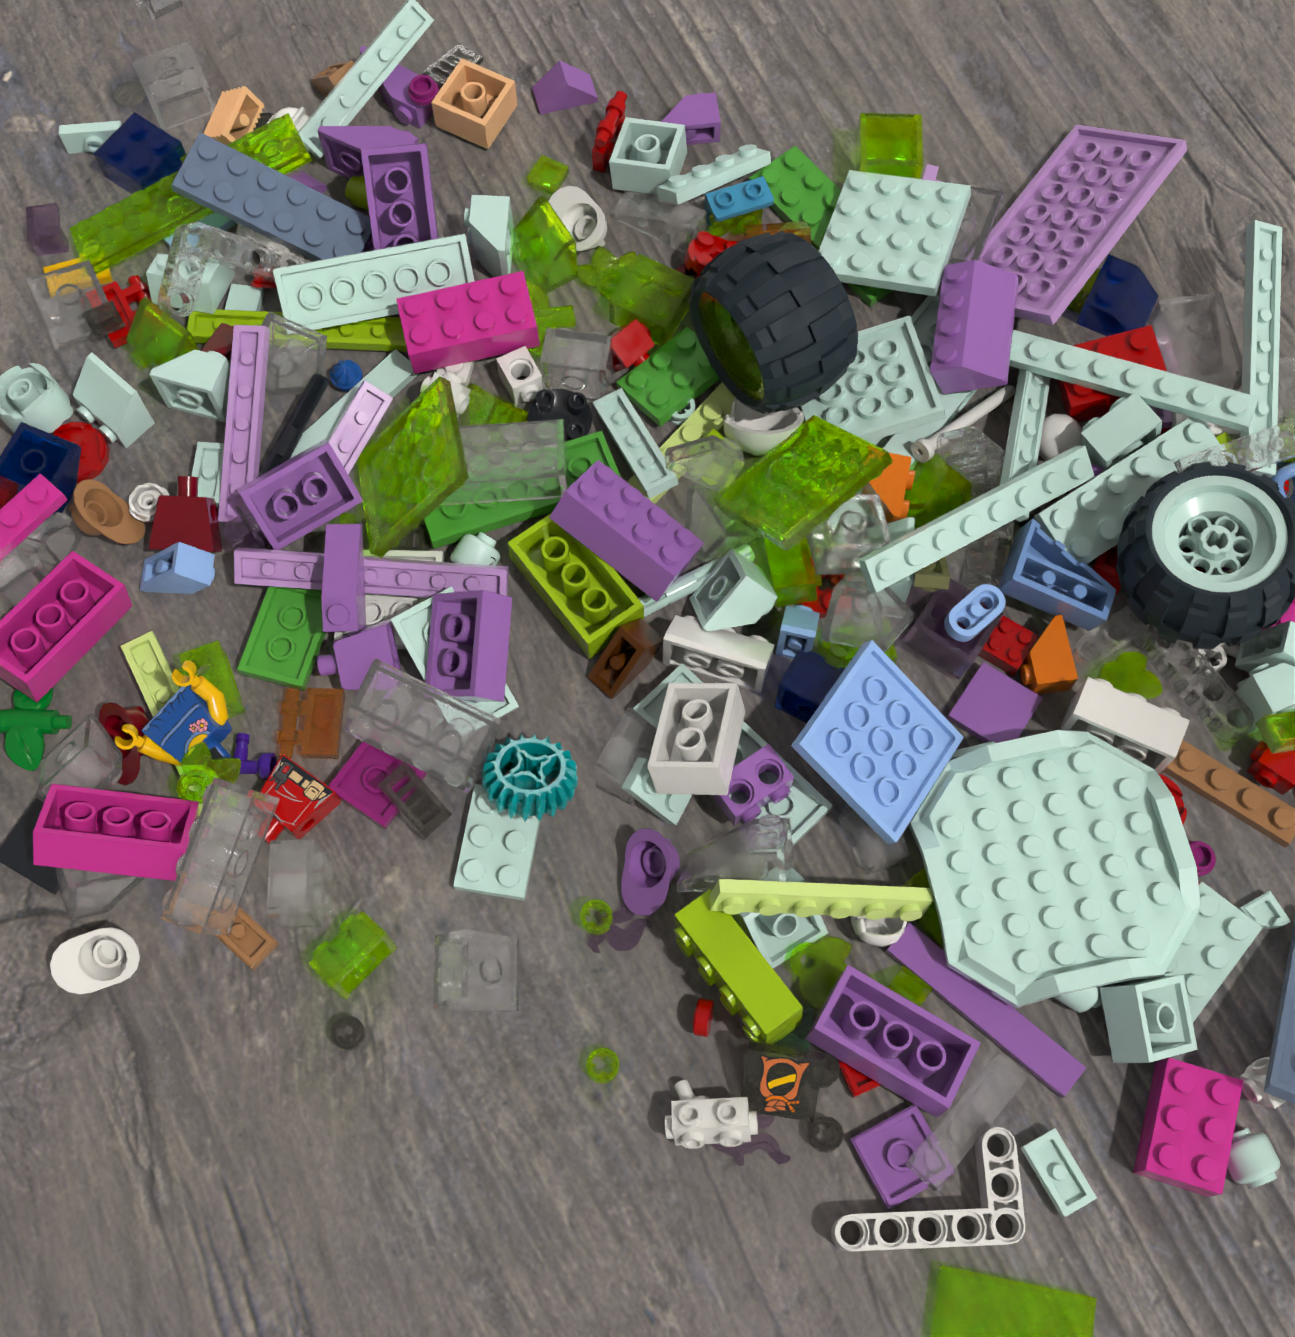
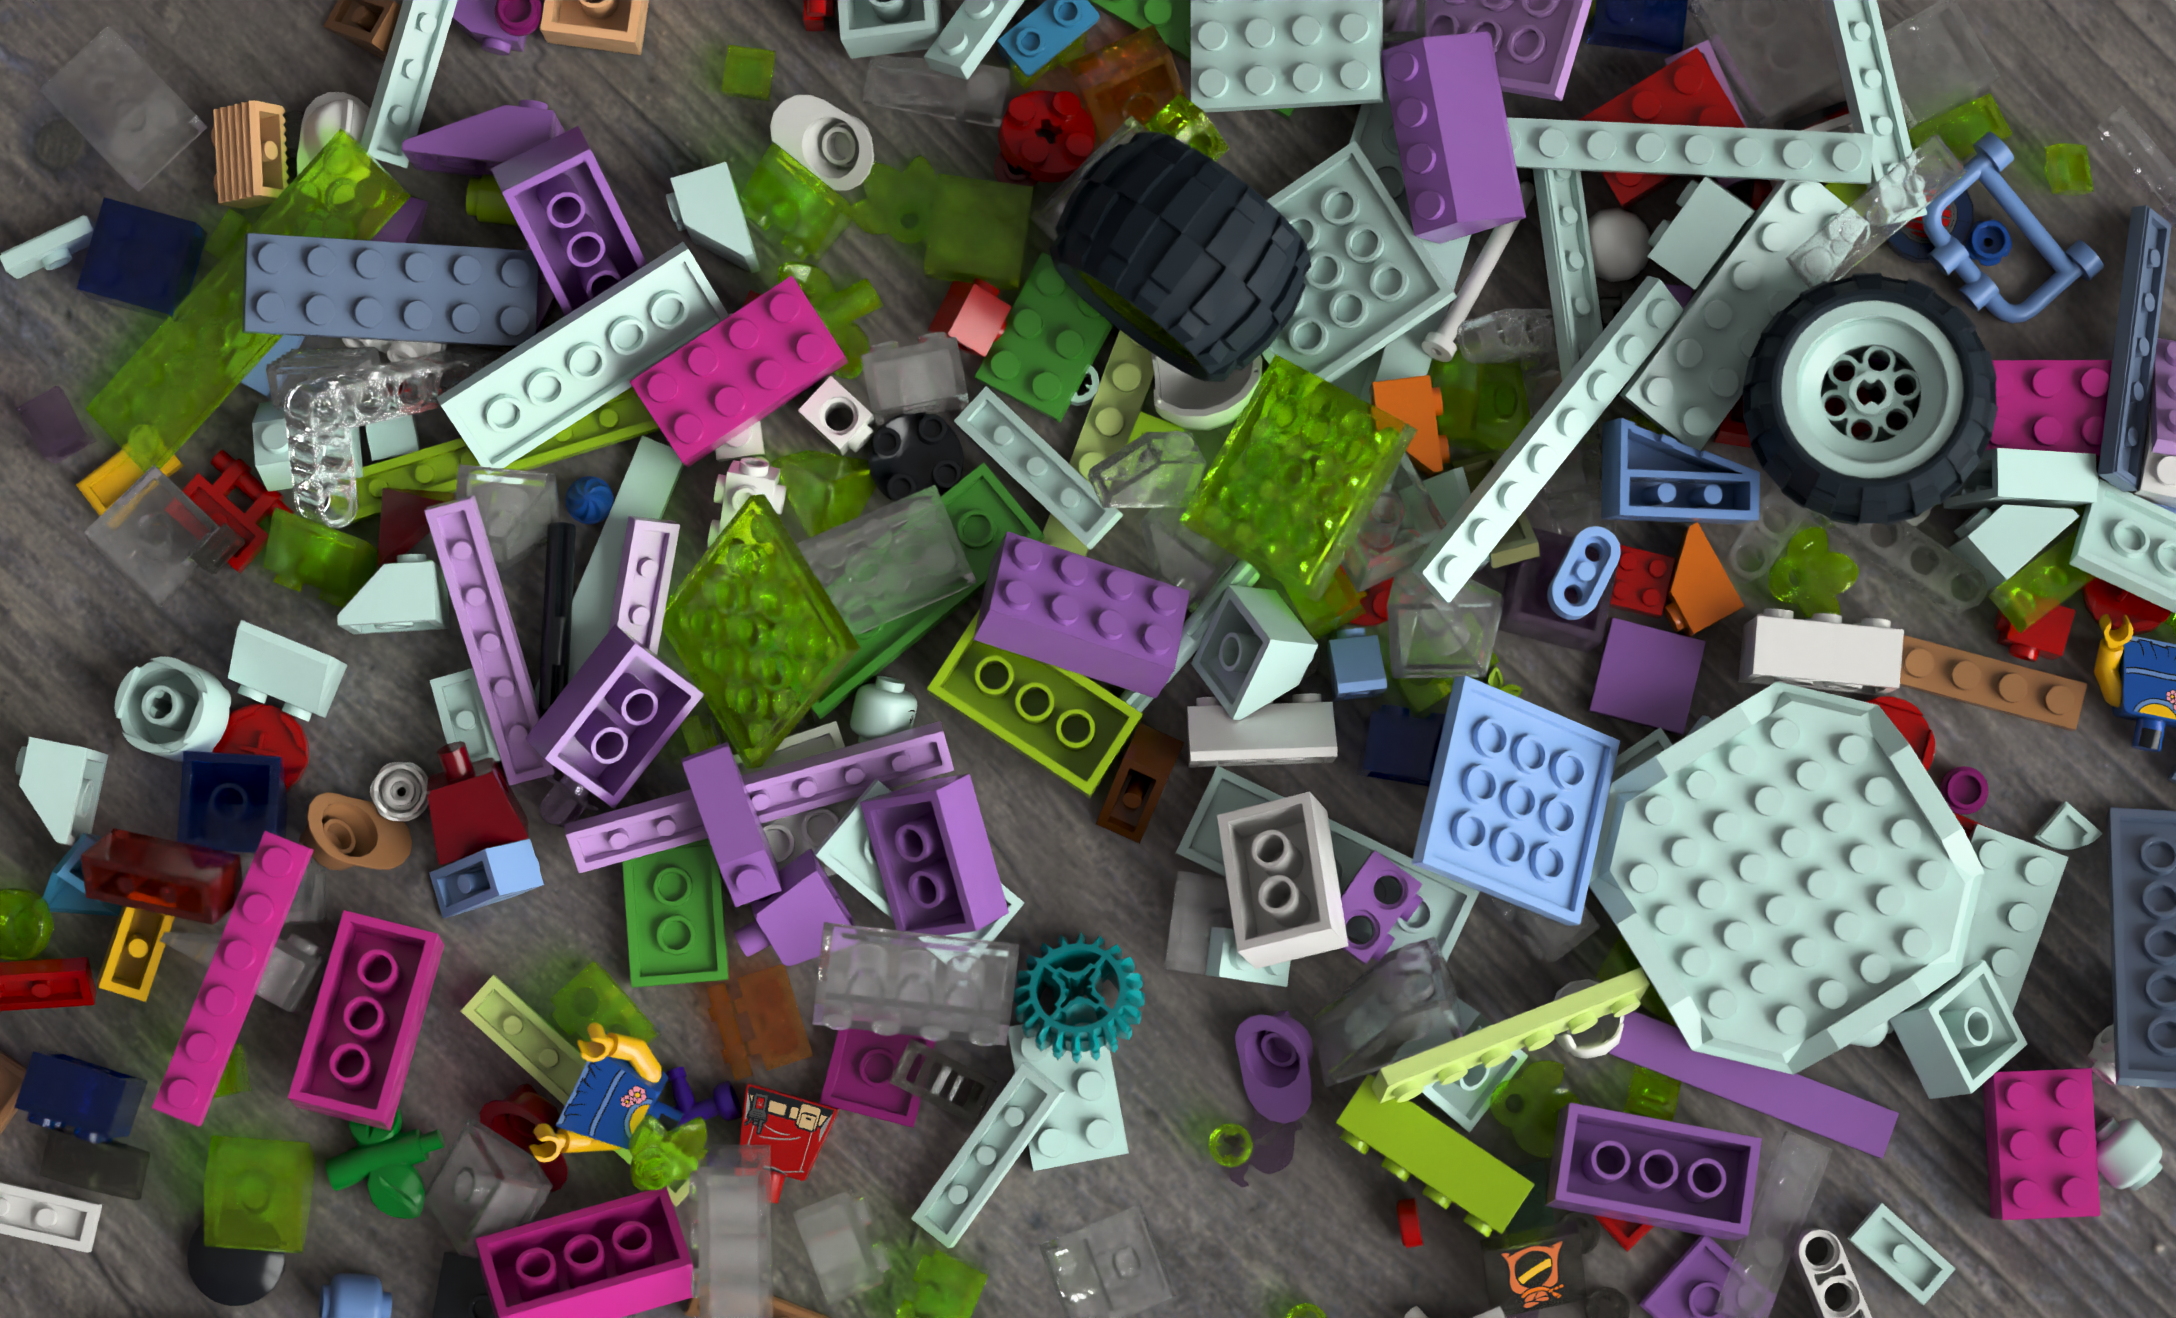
camera: 20 degrees left, 15 degrees up
(425, 861) = (988, 1154): none -> light aqua plate

